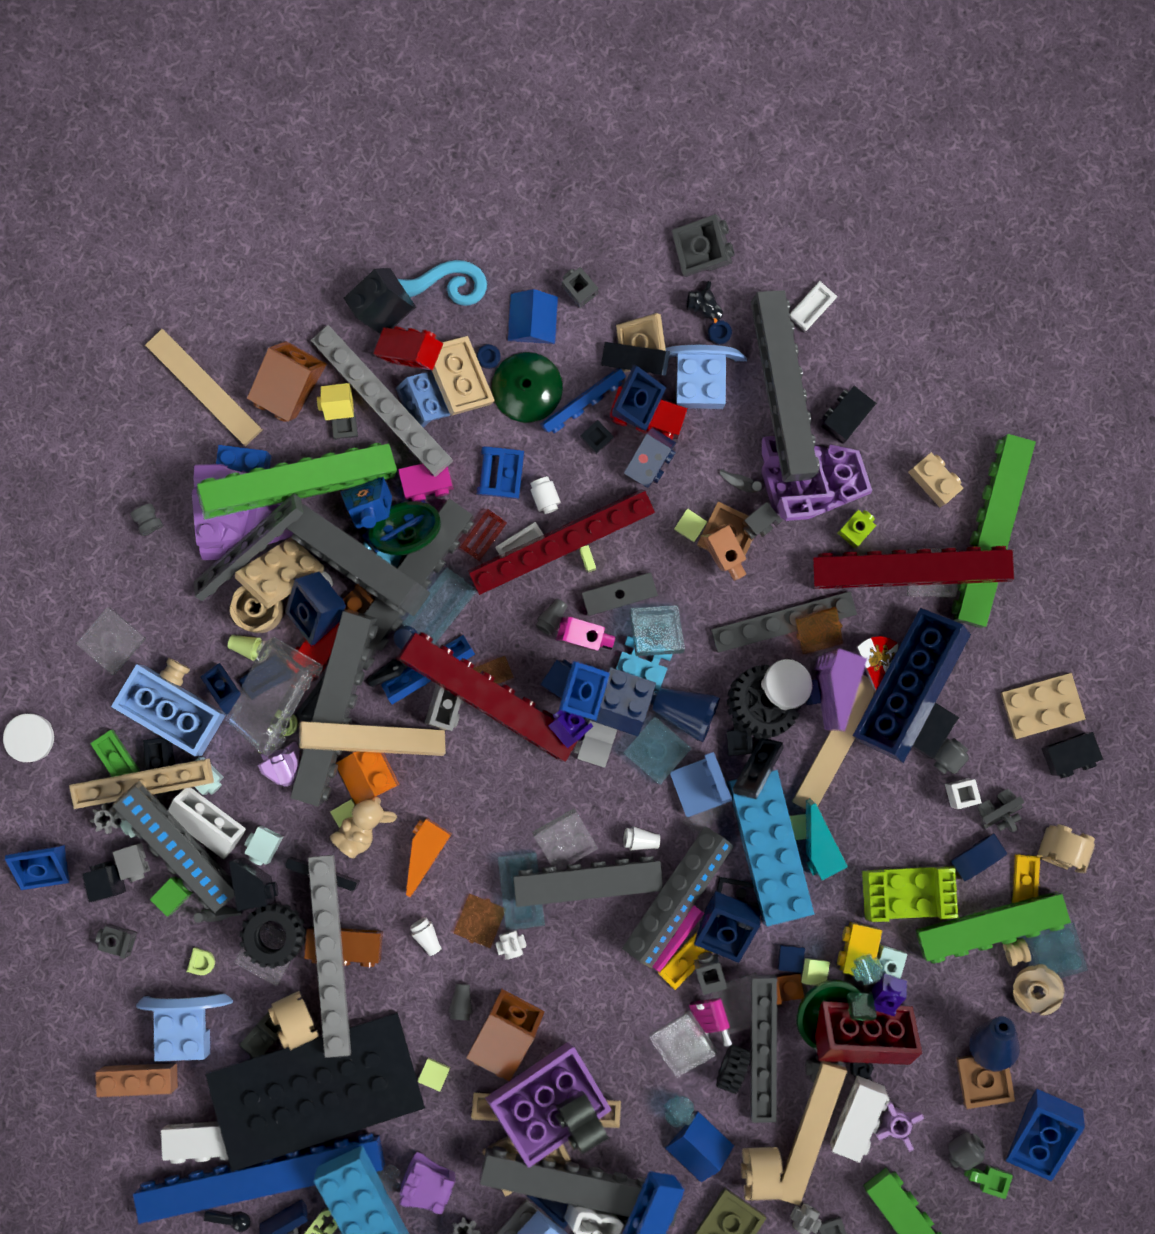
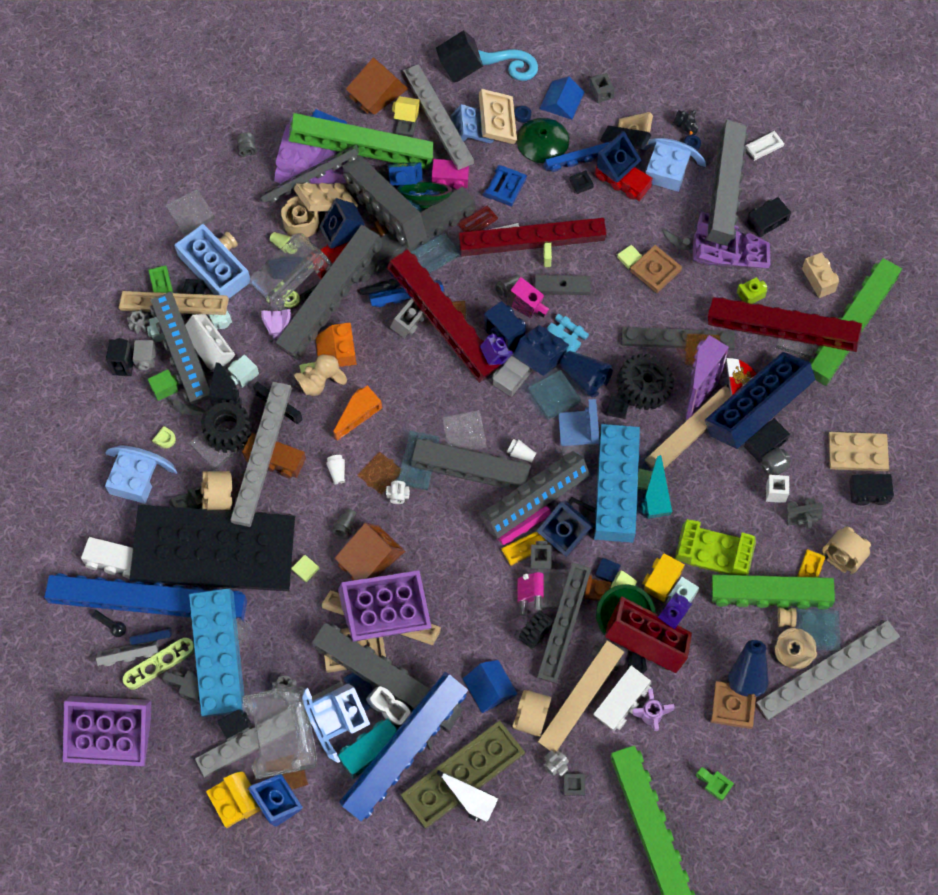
camera: 20 degrees right, 20 degrees down
(28, 737) = (107, 255): white tile -> none
(39, 867) = (78, 337): blue slope -> none
(124, 940) = (114, 407): dark grey brick -> none
(136, 1080) = (85, 499): nougat brick -> none
(203, 387) = (318, 78): tan tile -> none
(221, 687) = (254, 259): dark blue slope -> none
(371, 739) = (350, 318): tan tile -> none
(408, 347) = (468, 86): red brick -> none
(426, 1184) = (269, 639): medium lavender piece -> none
(545, 495) = (531, 207): white brick -> none
(582, 1122) = (405, 620): pearl dark grey brick -> none
(584, 690) = (513, 321): blue slope -> none
(650, 458) = (615, 201): brick -> none
(656, 630) = (581, 313): clear light blue plate -> none
(679, 1111) = (483, 650): clear light blue gear -> none
(683, 1044) = (503, 602): clear plate -> none
(703, 245) = (698, 86): dark grey plate -> none
(718, 542) = (649, 269): nougat torso -> none
(758, 768) = (625, 421): black tile -> none
(761, 521) = (682, 261): dark grey brick -> none
(787, 684) = (666, 370): white tile -> none
(815, 697) = (683, 389): dark blue tile -> none
(861, 1006) = (650, 610): clear green tile -> none
(867, 969) = (663, 582): clear light blue gear -> none
(966, 1151) = (701, 753): dark grey head -> none
(979, 857) = (777, 540): dark blue slope -> none
(1046, 1135) = (769, 762): blue slope -> none
(1080, 998) = (827, 670): none -> light grey plate

